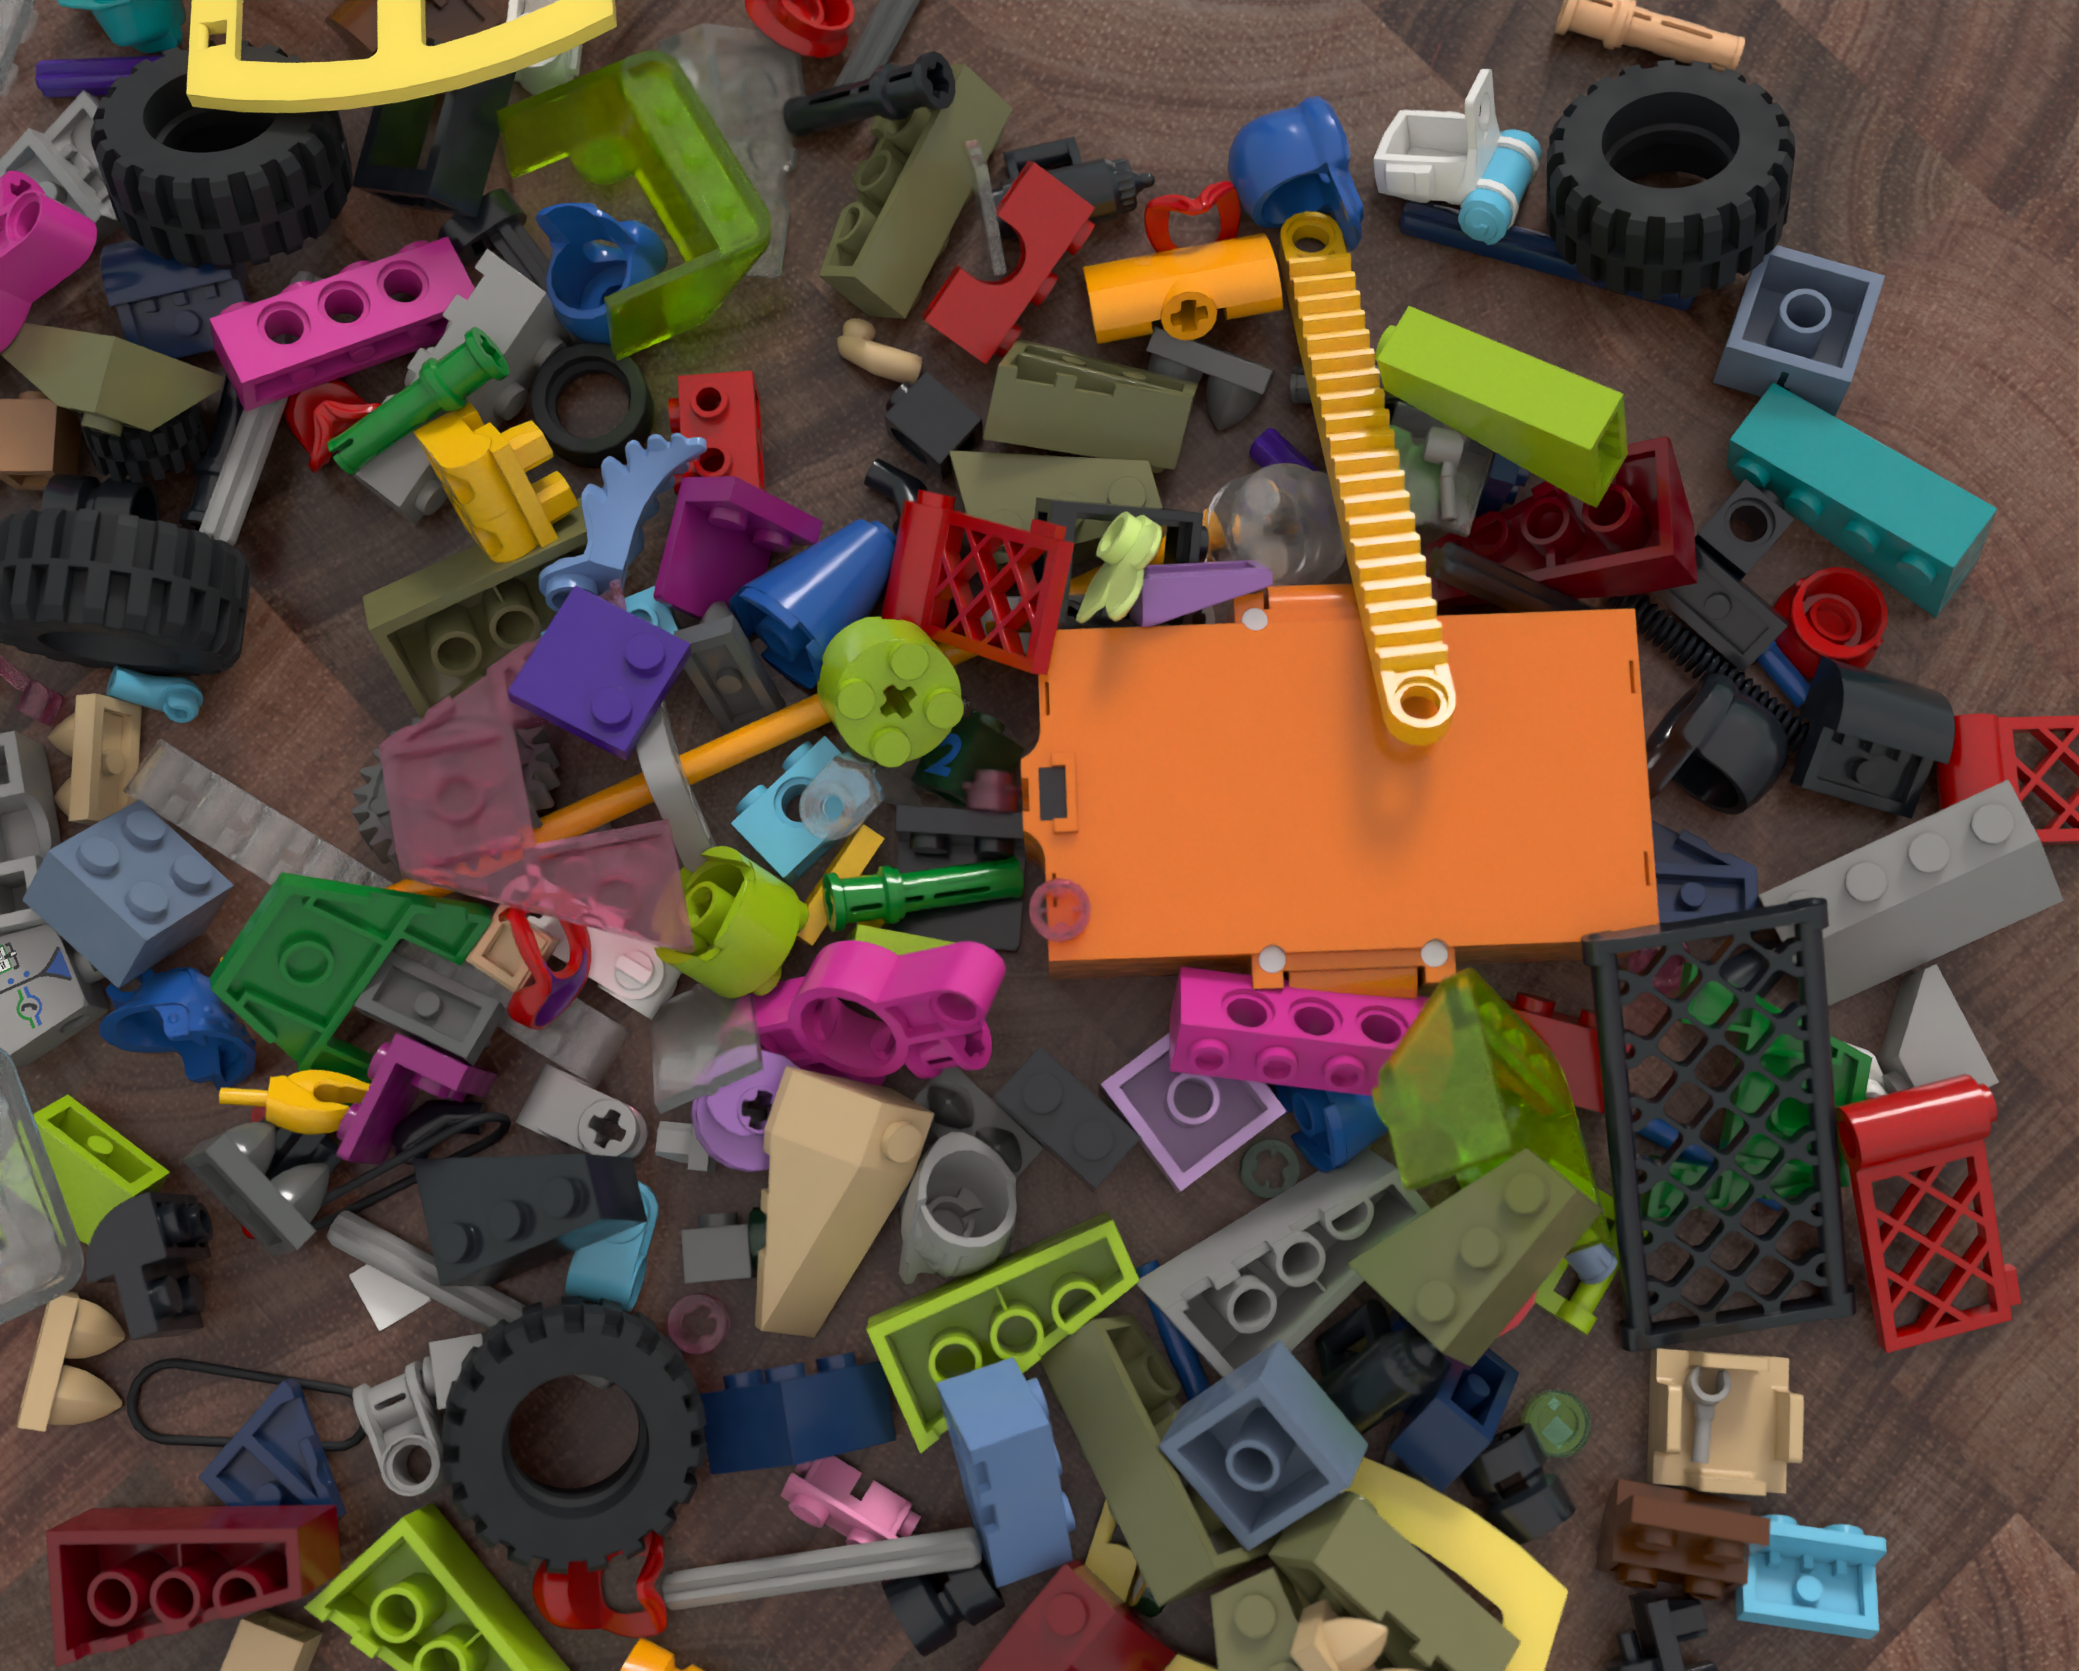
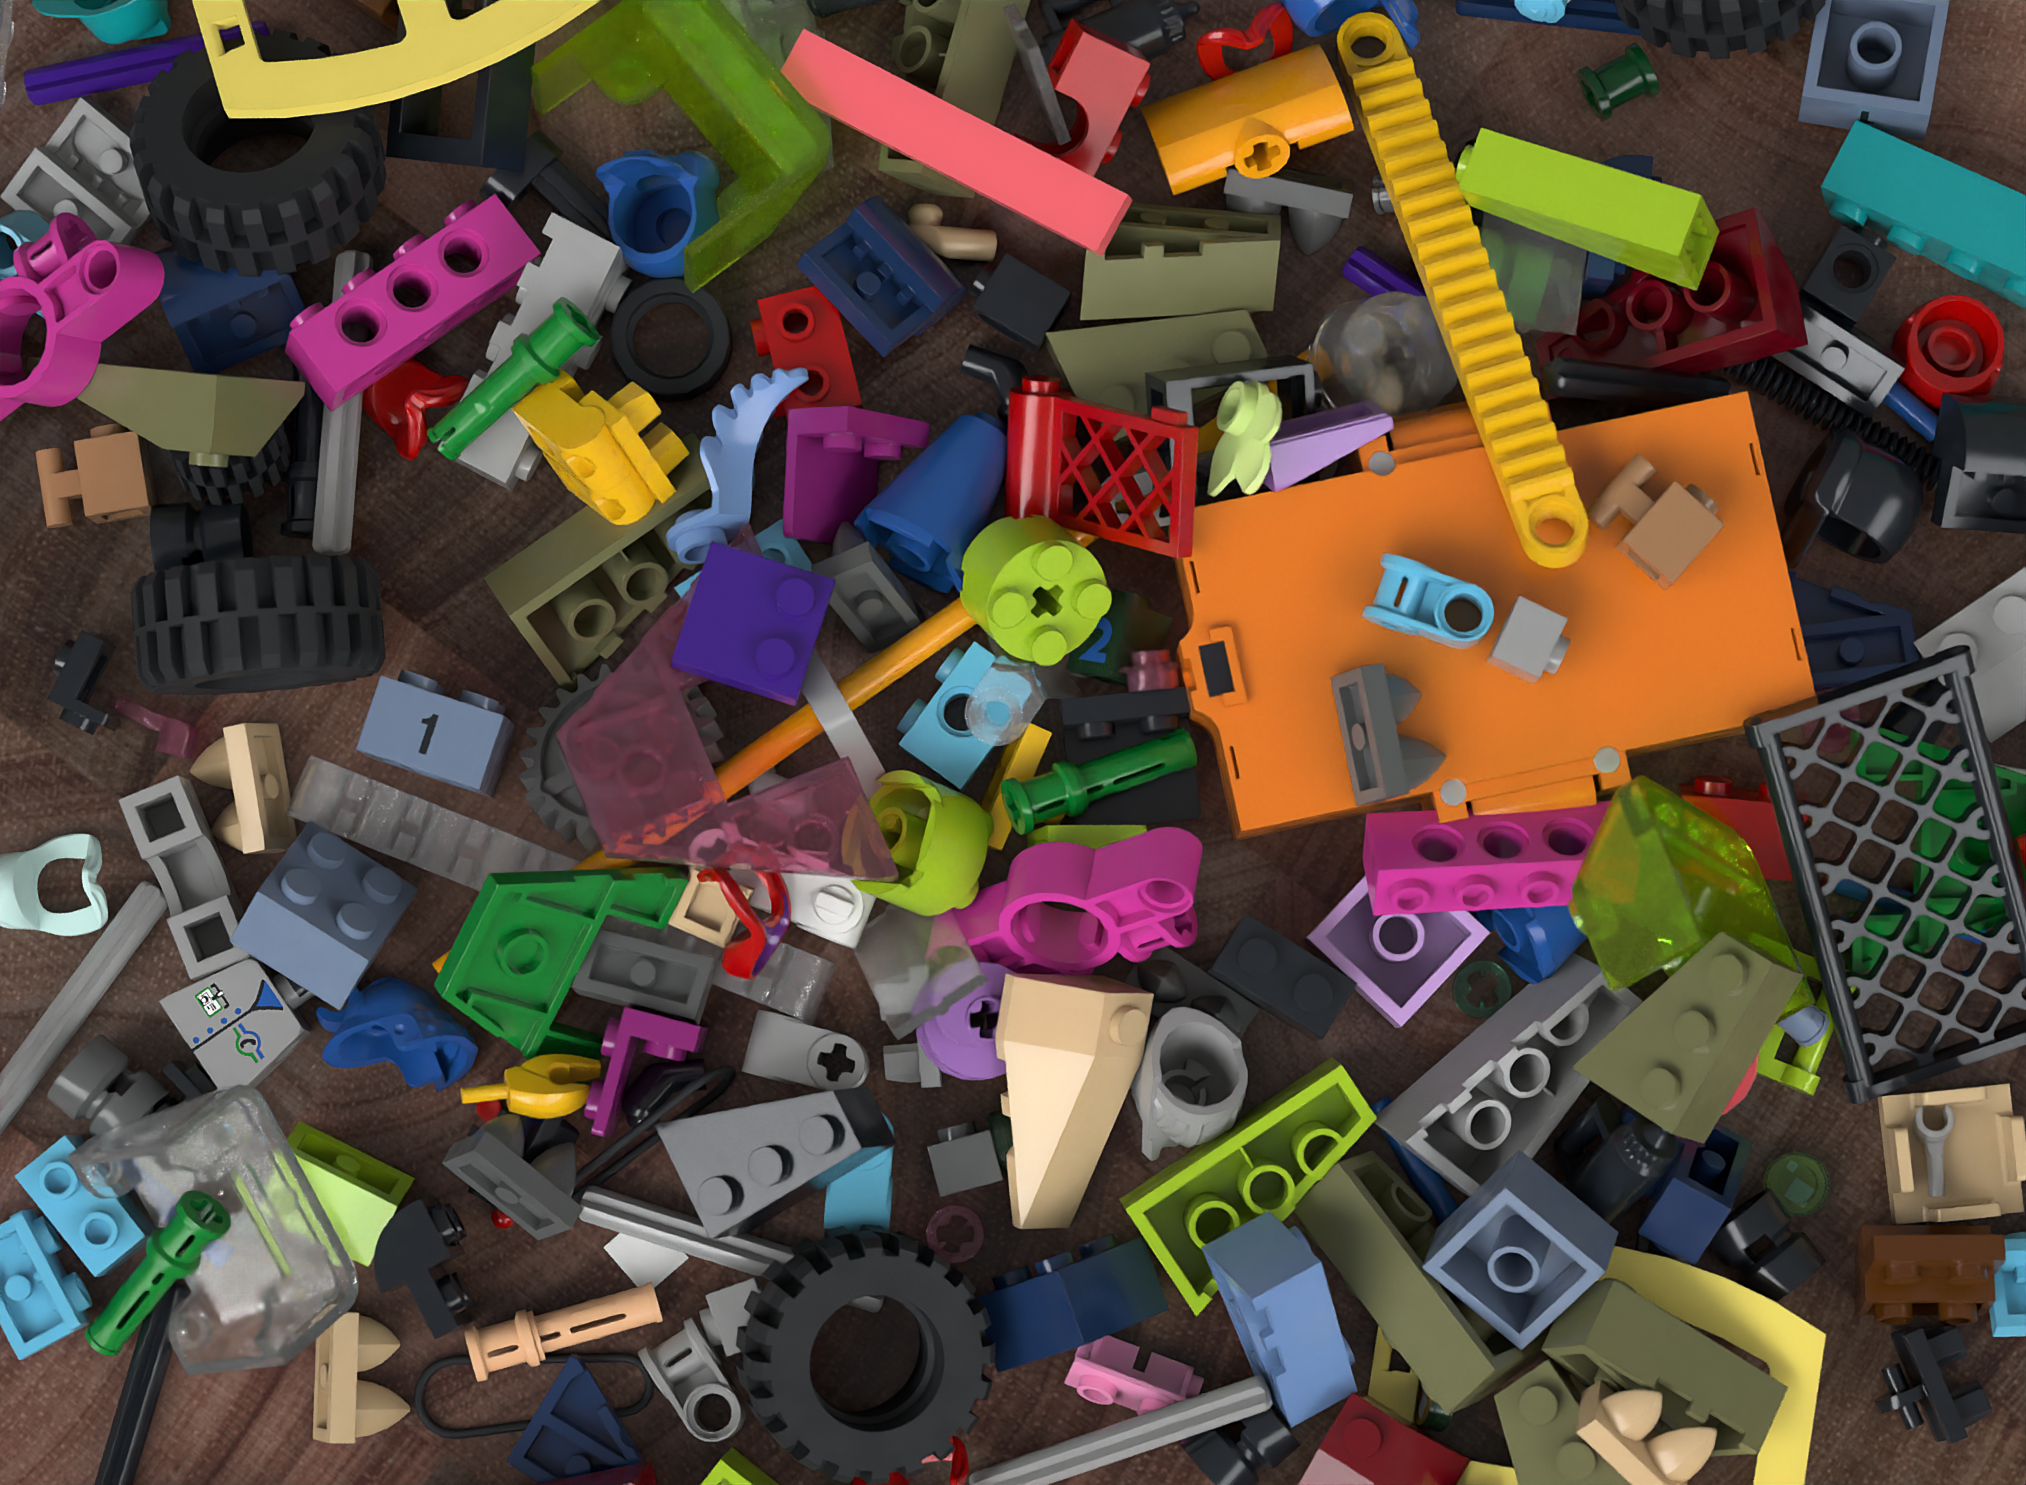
camera: 10 degrees left, 5 degrees up
(174, 696) = (299, 708): medium azure arm -> none
(252, 1352) = (531, 1336): none -> light nougat pin
(281, 734) = (437, 735): none -> sand blue brick
(802, 372) = (882, 276): none -> dark blue brick
(895, 252) = (955, 143): none -> coral tile
(1058, 889) = (1249, 801): clear pink bush -> none
(1200, 909) = (1377, 757): none -> dark grey tile
(1275, 759) = (1424, 603): none -> medium azure piece
(1375, 816) = (1530, 641): none -> light grey plate
(1445, 448) = (1539, 254): light grey hand -> none
(1530, 729) = (1665, 532): none -> medium nougat brick
(1545, 315) = (1618, 82): none -> dark green bush

